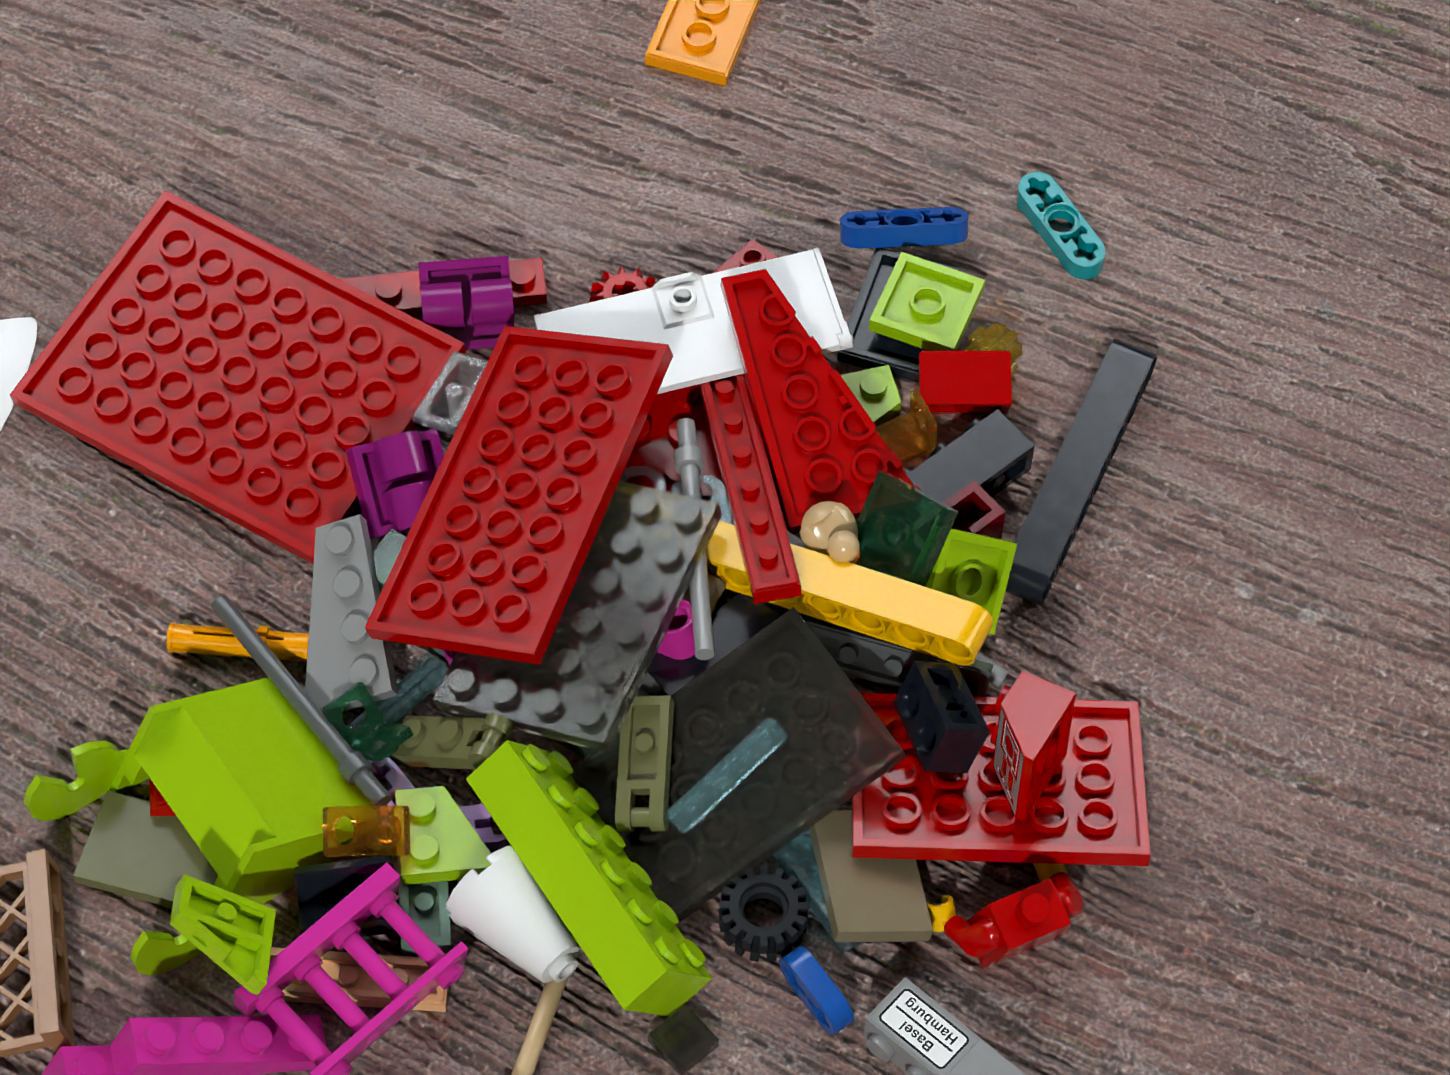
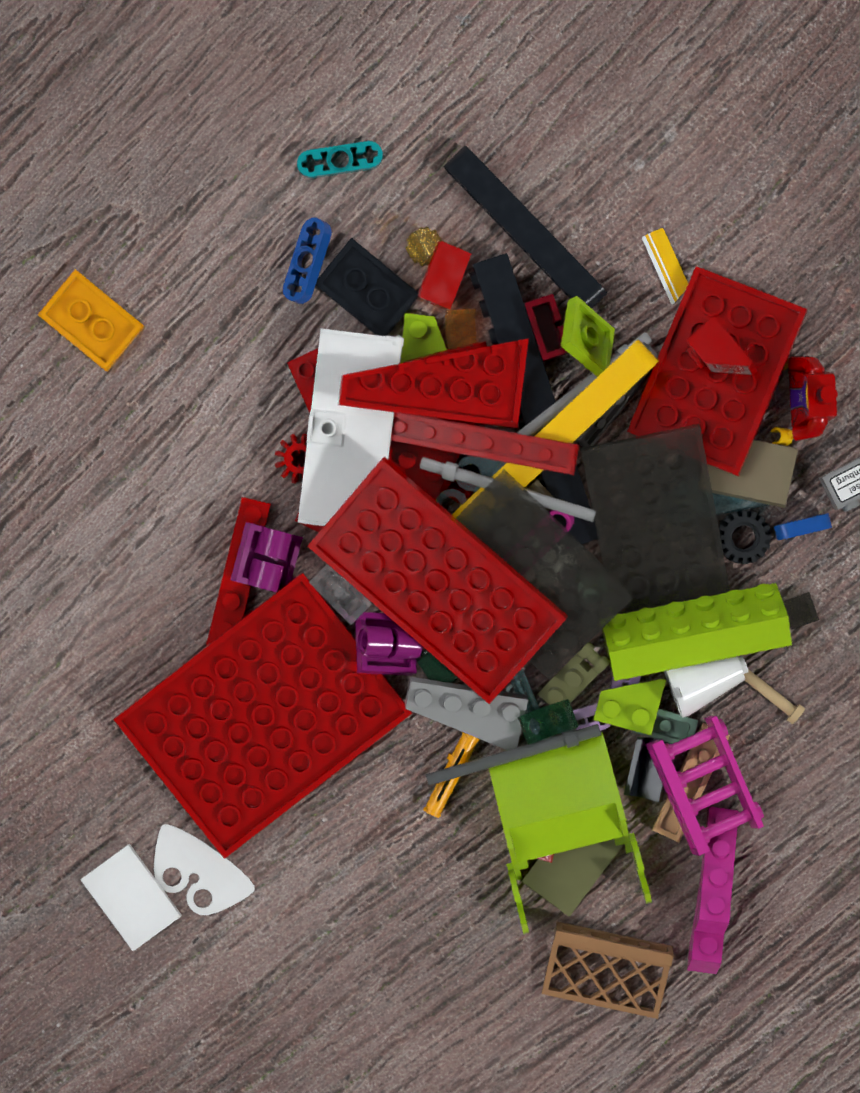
camera: 65 degrees left, 30 degrees up
(226, 929) = (667, 849): lime wing -> none
(376, 830) = (617, 741): clear orange bracket -> none
(645, 764) = (639, 572): olive plate -> none
(726, 775) = (666, 530): clear light blue axle -> none
(831, 531) = (536, 407): tan animal -> none
(902, 530) = (555, 368): clear green tile -> none
(926, 304) = (377, 273): lime plate -> none
(941, 717) = (679, 392): black brick -> none
(1124, 668) = (666, 264): none -> yellow sticker

